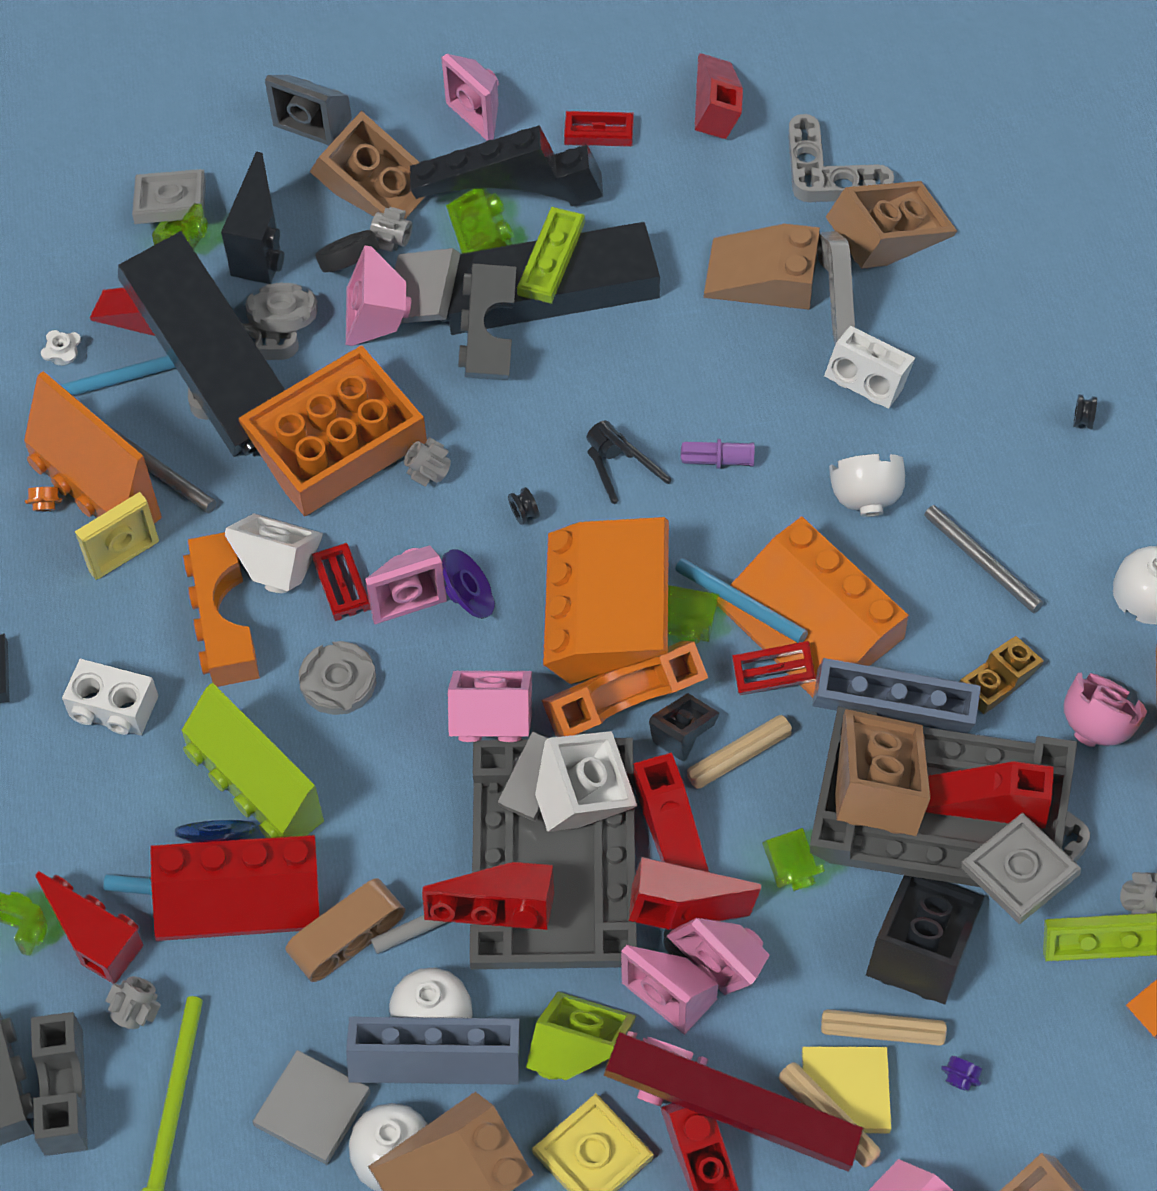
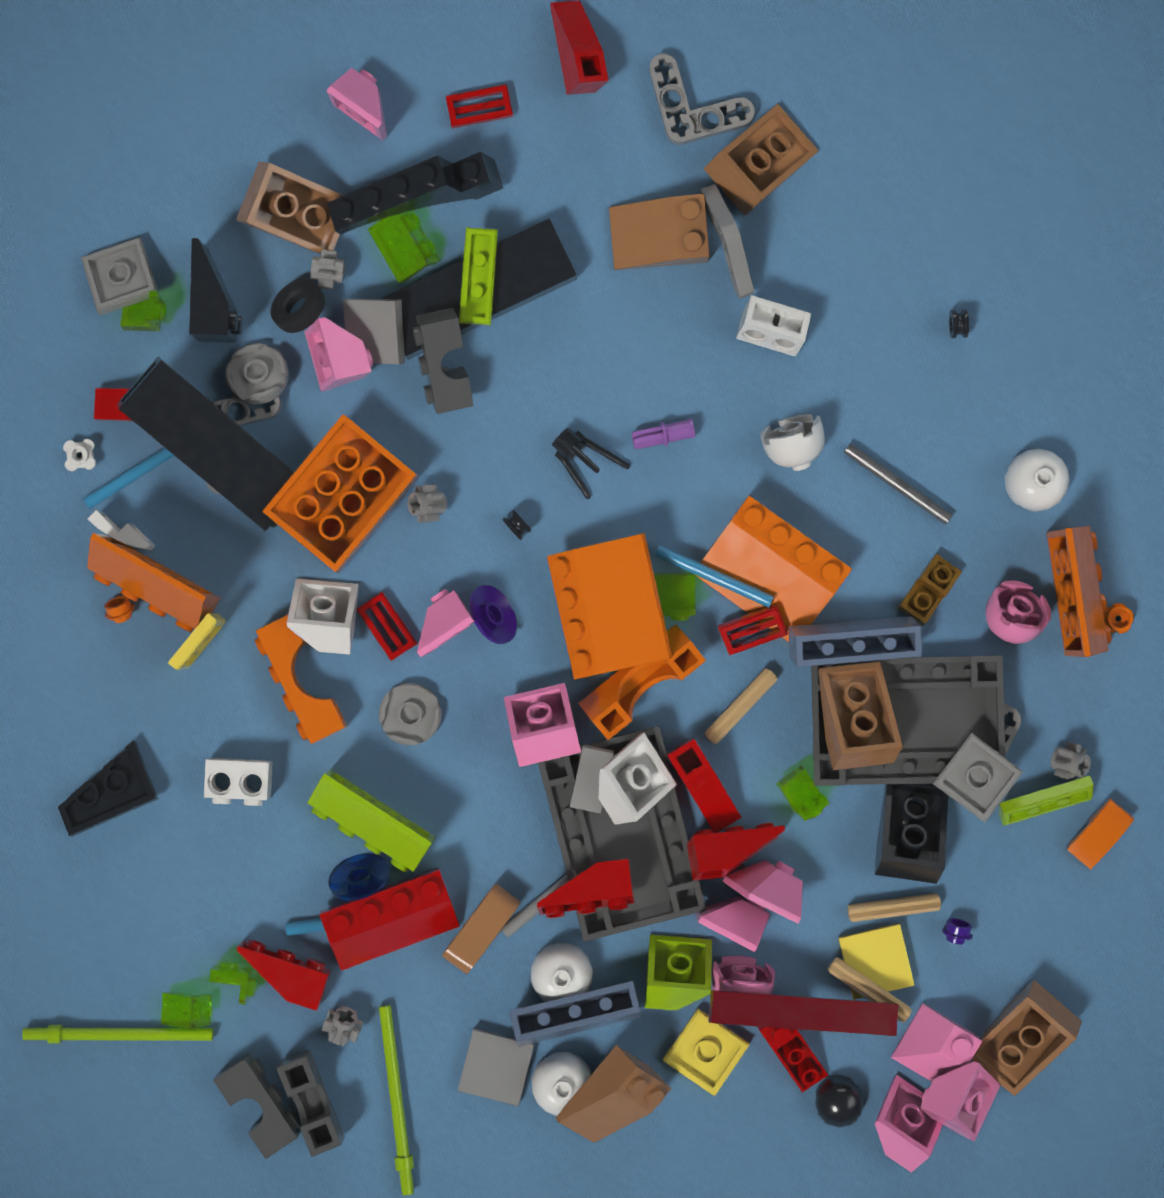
camera: 15 degrees left, 30 degrees up
(173, 479) = (202, 554): flat silver bar -> none
(307, 108) = (214, 149): flat silver slope -> none
(680, 724) = (694, 698): black slope -> none
(994, 792) = (945, 716): red slope -> none

